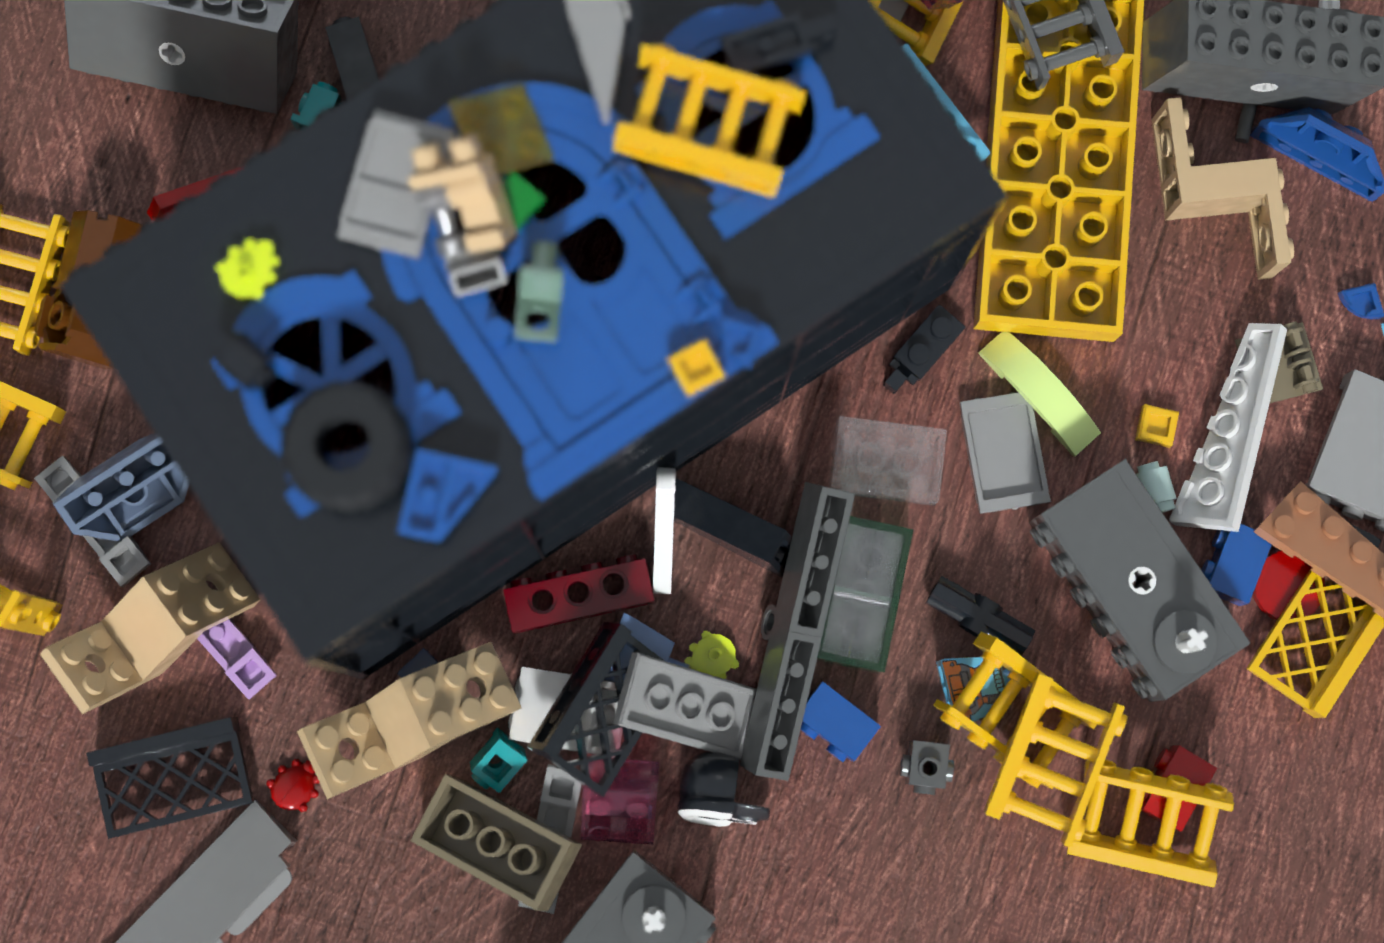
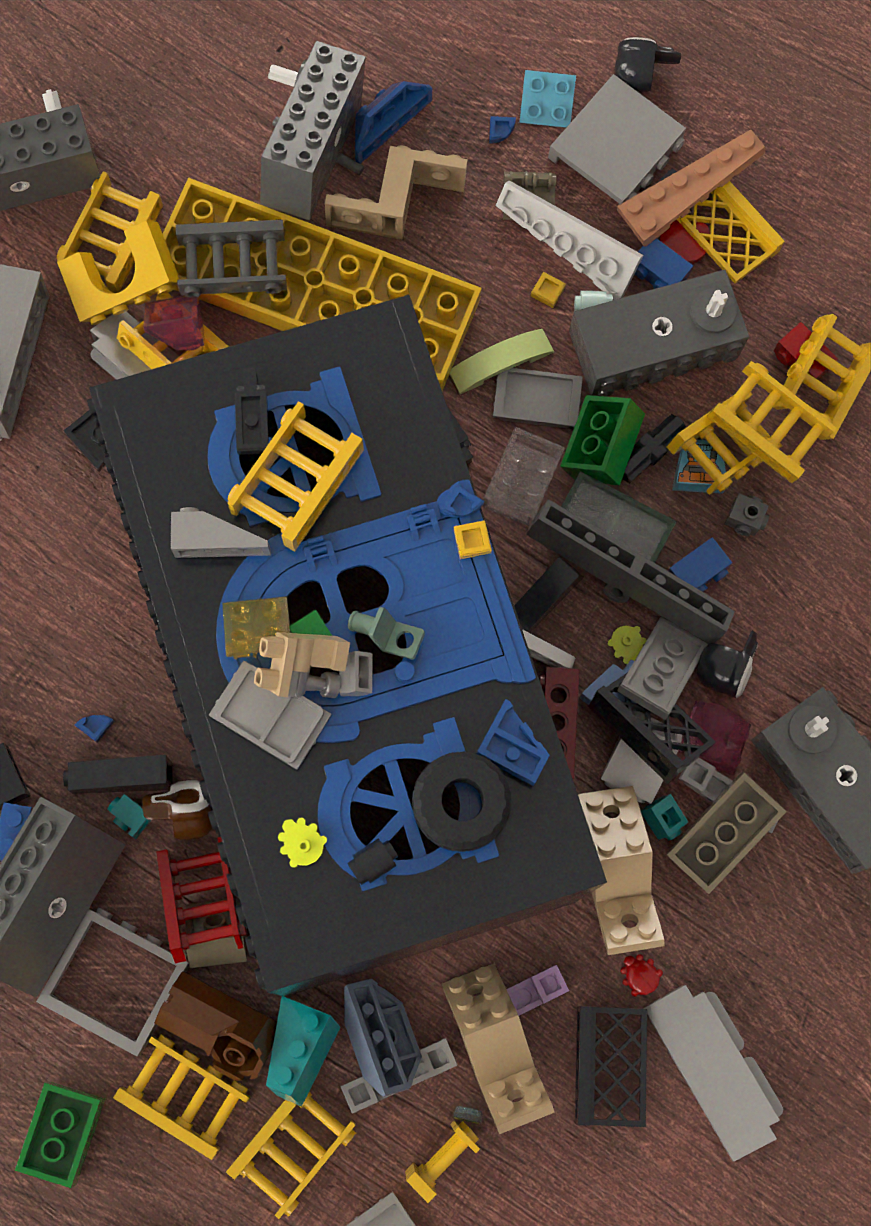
camera: 75 degrees left, 5 degrees down
(66, 130) = (89, 1022): none -> light grey window
(68, 618) = (468, 1115): none -> clear light blue tile
(79, 393) = (299, 1049): none -> teal wedge
(415, 35) = (95, 726): none -> blue tile
(967, 548) = (603, 438): none -> green brick

